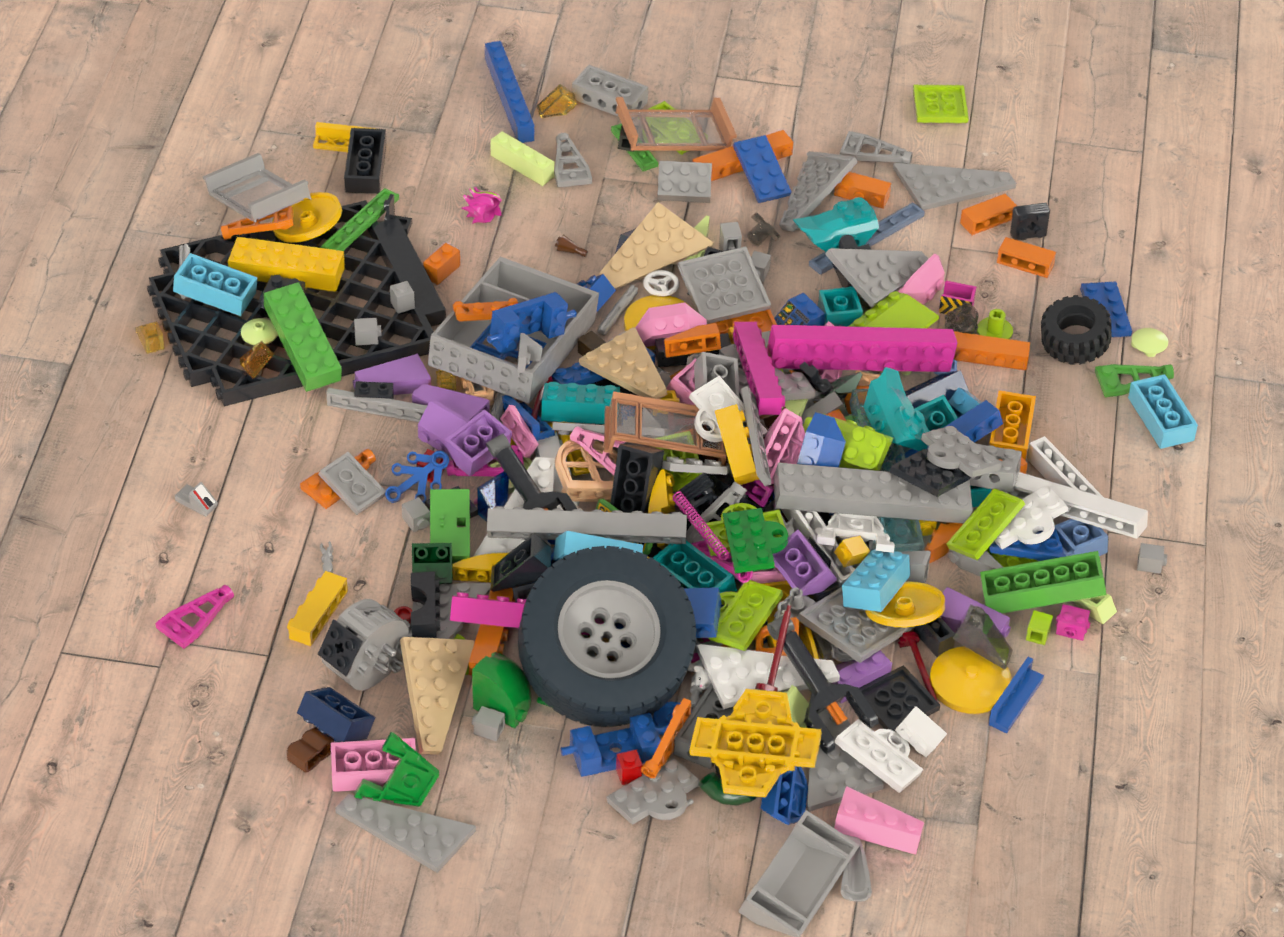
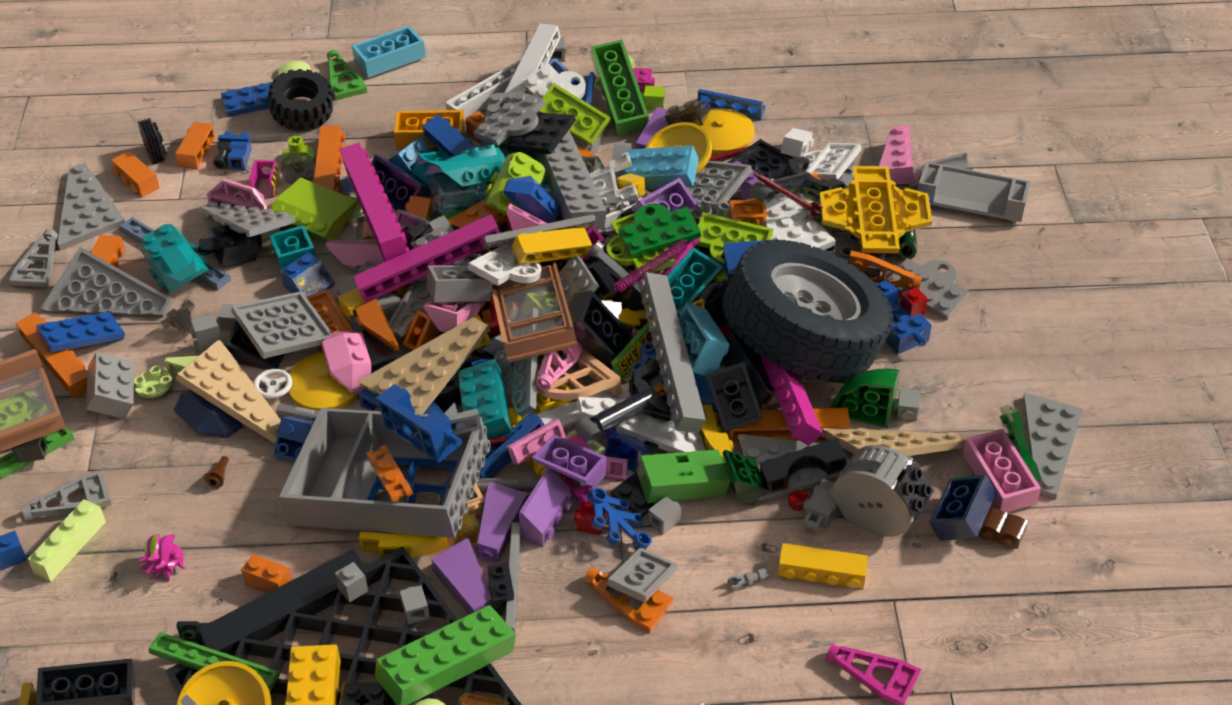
camera: 100 degrees left, 0 degrees up
(691, 213) = (153, 382): none -> yellowish green dish
(1012, 285) = (236, 148): none -> blue hips

